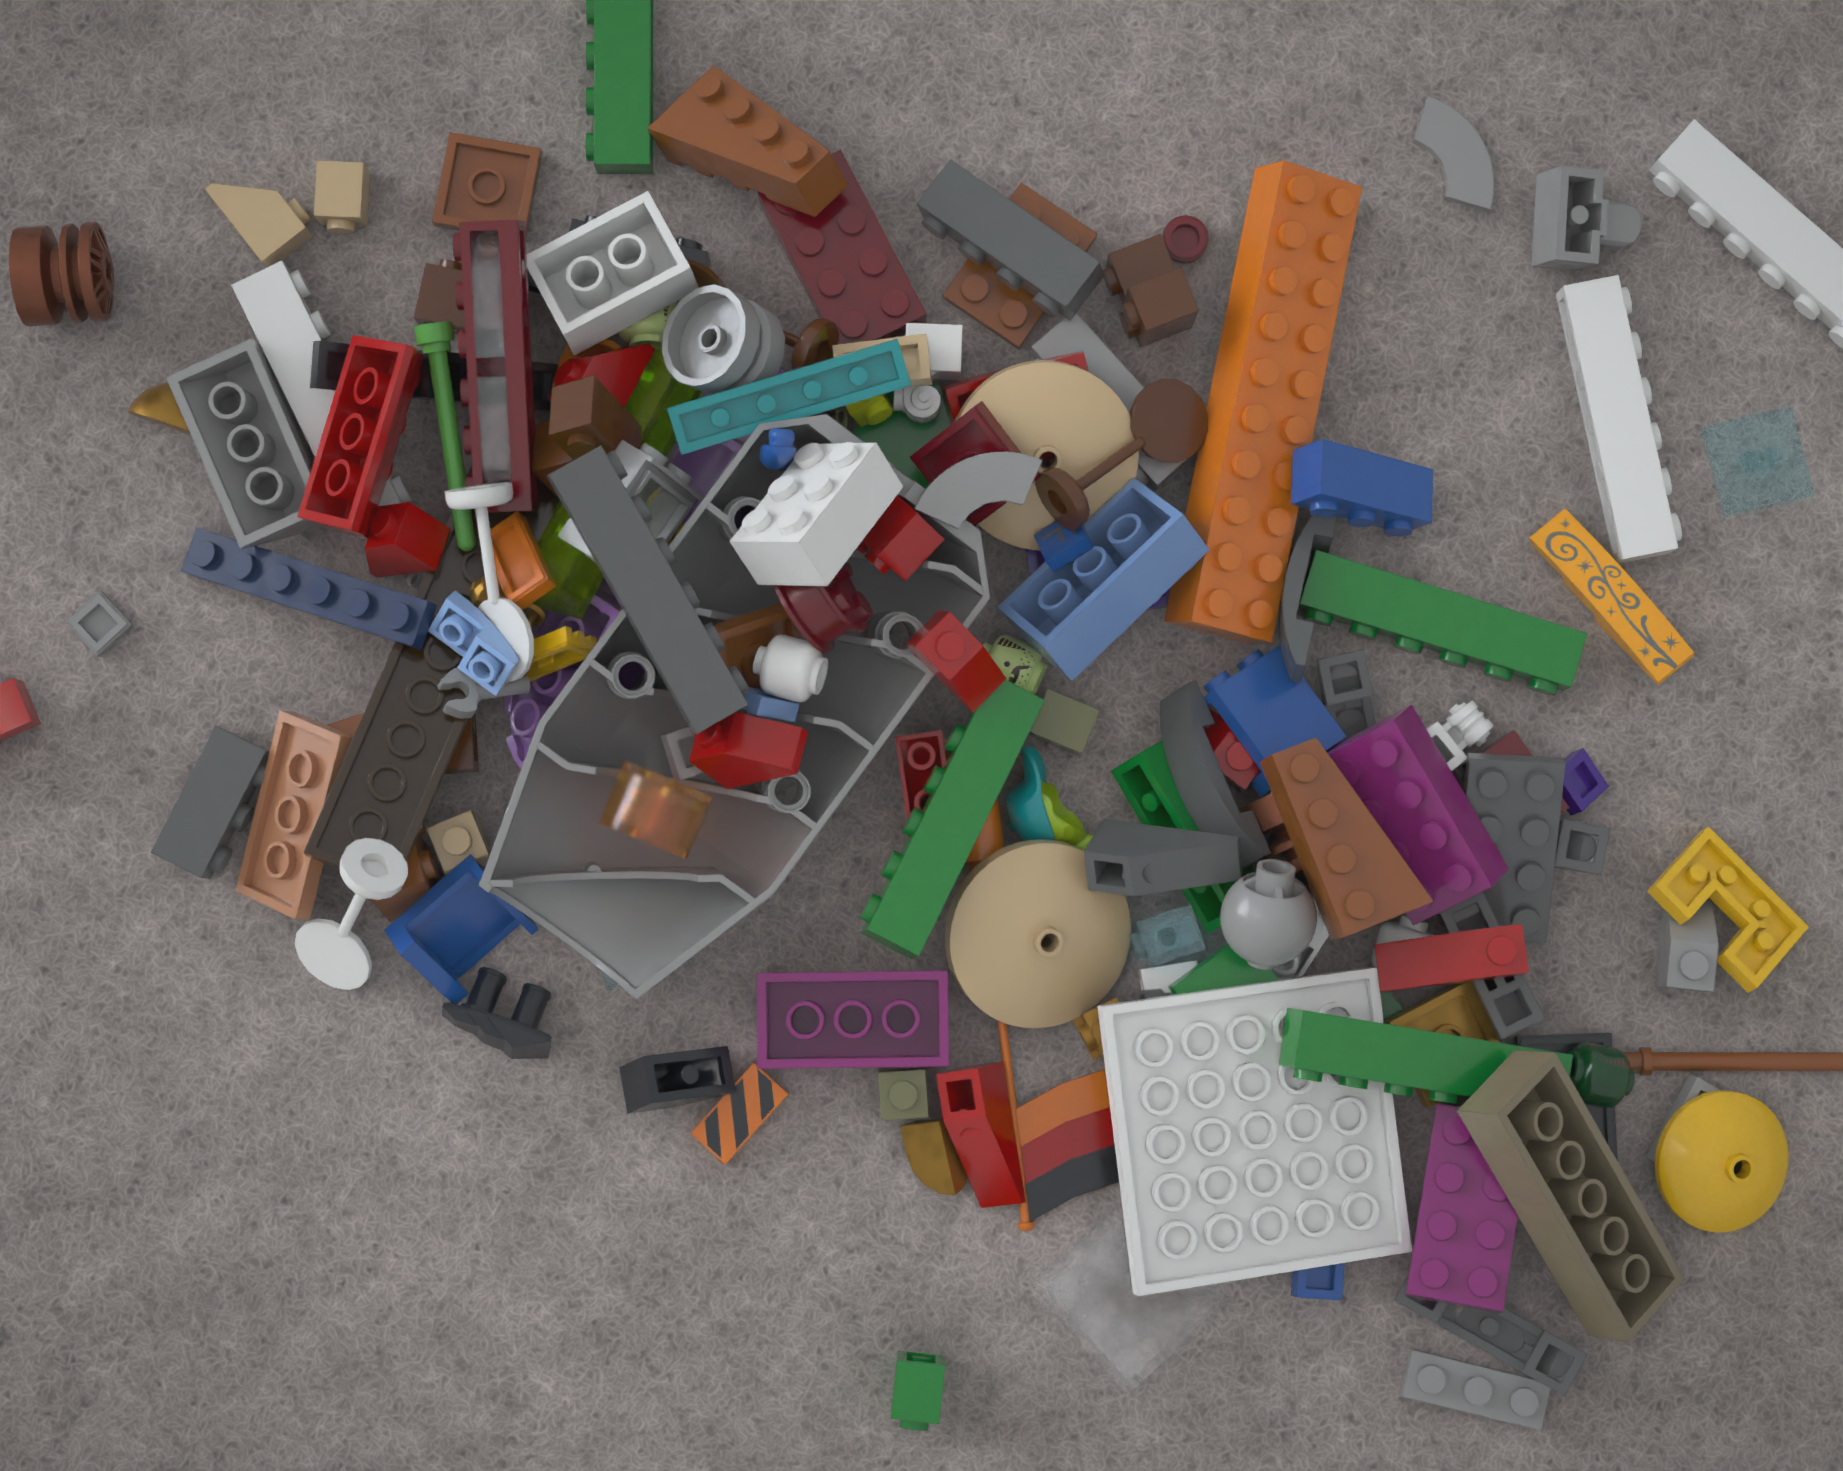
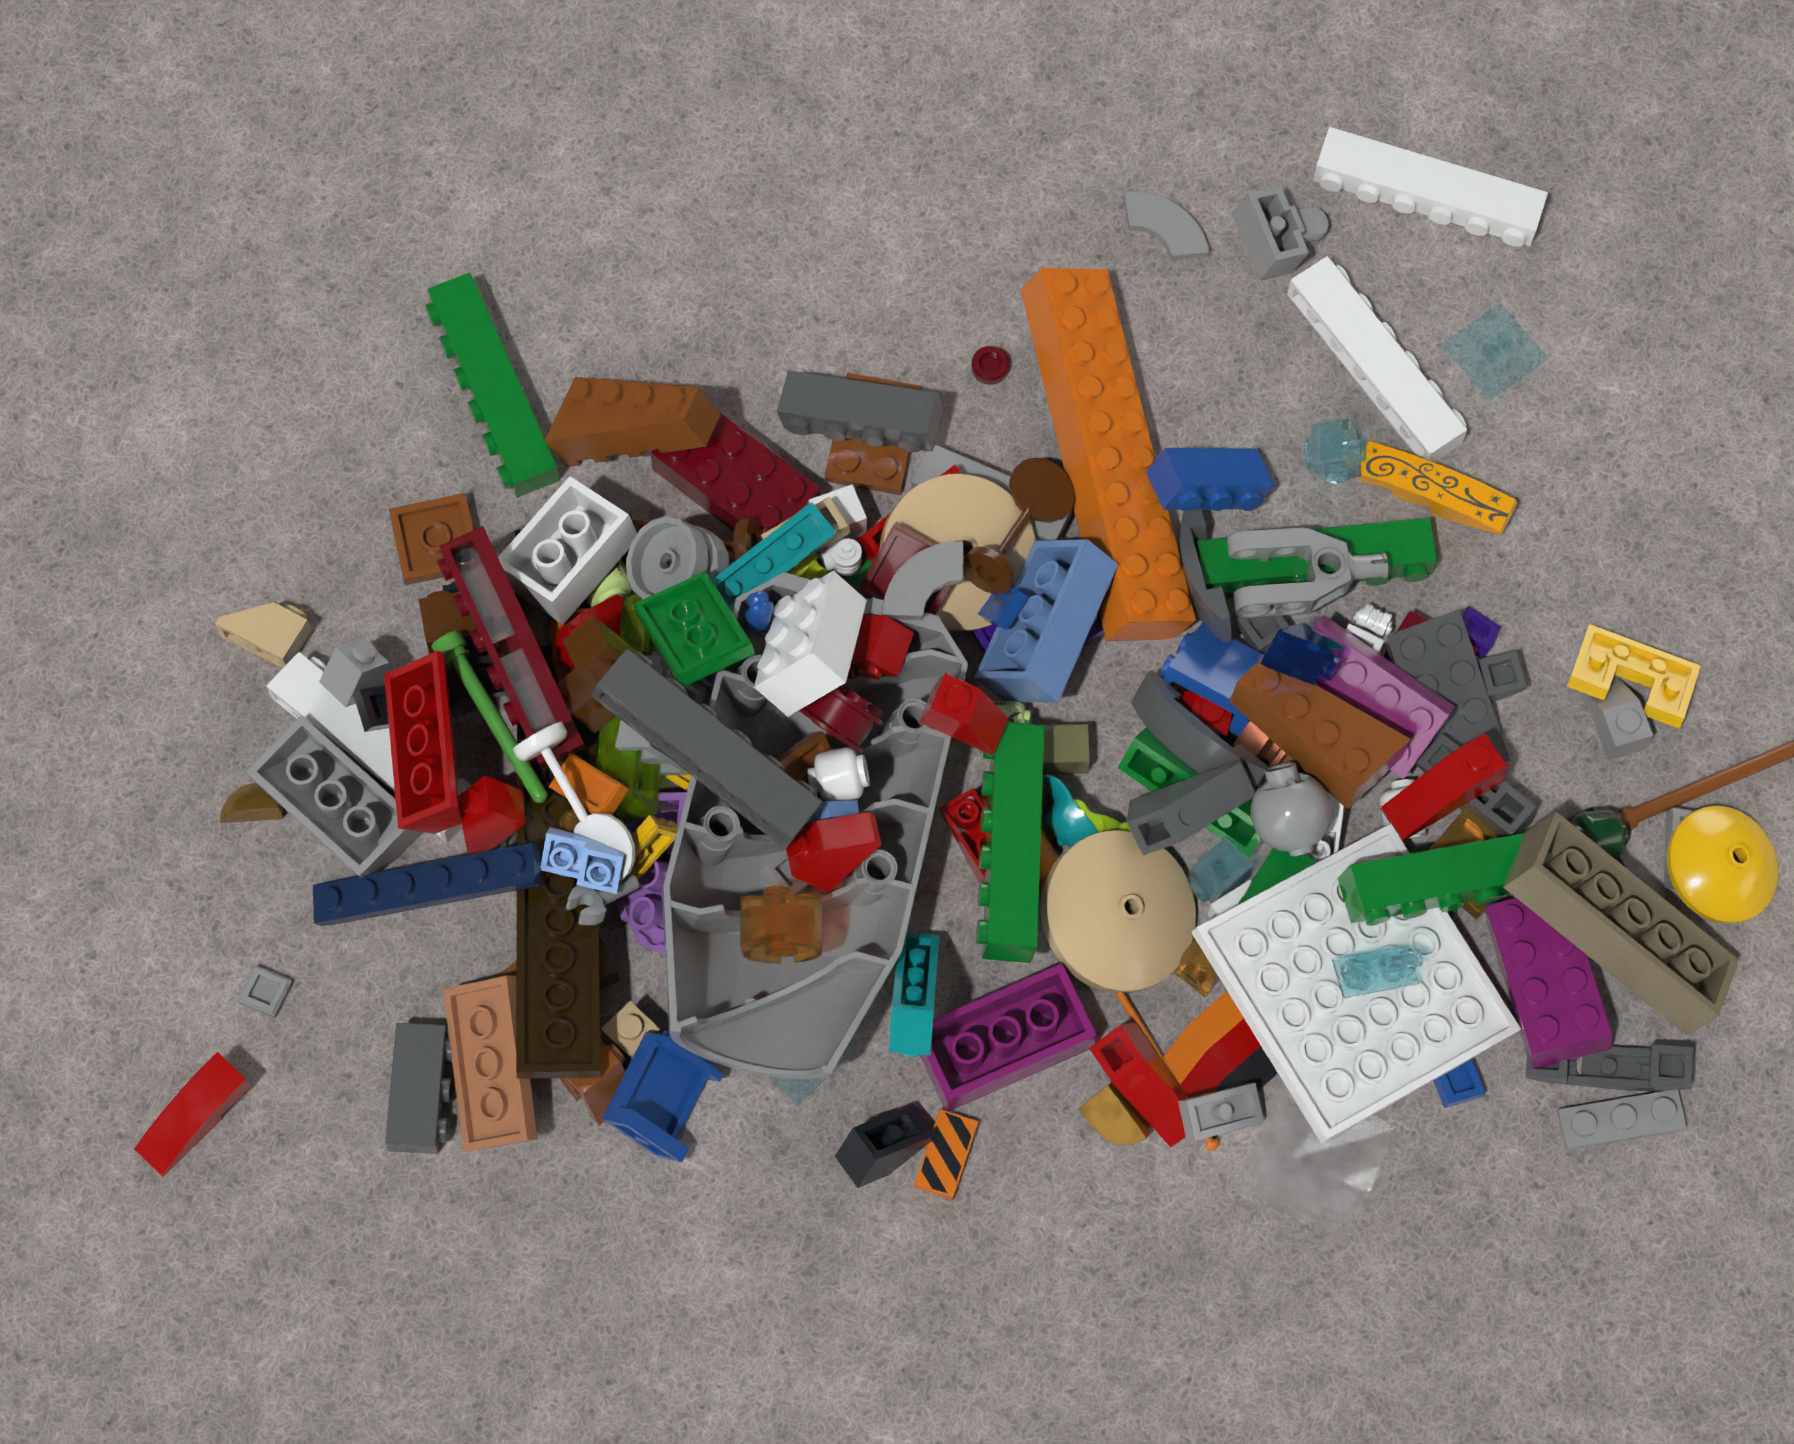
camera: 25 degrees left, 15 degrees down
(55, 275) = (127, 731): copper wheel -> none
(331, 949) = (564, 1159): white piece -> none
(334, 313) = (353, 668): none -> light grey slope
(341, 195) = (323, 589): tan brick -> none
(513, 1036) = (733, 1166): black connector -> none
(695, 441) = (693, 629): none -> green tile
(769, 944) = (914, 996): none -> teal brick
(903, 1094) = (1069, 1080): olive brick -> none
(918, 1389) = (1187, 1298): green brick -> none
(1047, 1201) = (1221, 1111): none -> light grey plate
(1152, 291) = (984, 408): reddish brown brick -> none
(1280, 1132) = (1377, 970): none -> clear light blue hinge
(1360, 757) = (1304, 654): none -> clear blue slope
(1440, 622) = (1305, 596): none -> light grey piece
(1519, 508) = (1335, 451): none -> clear light blue brick

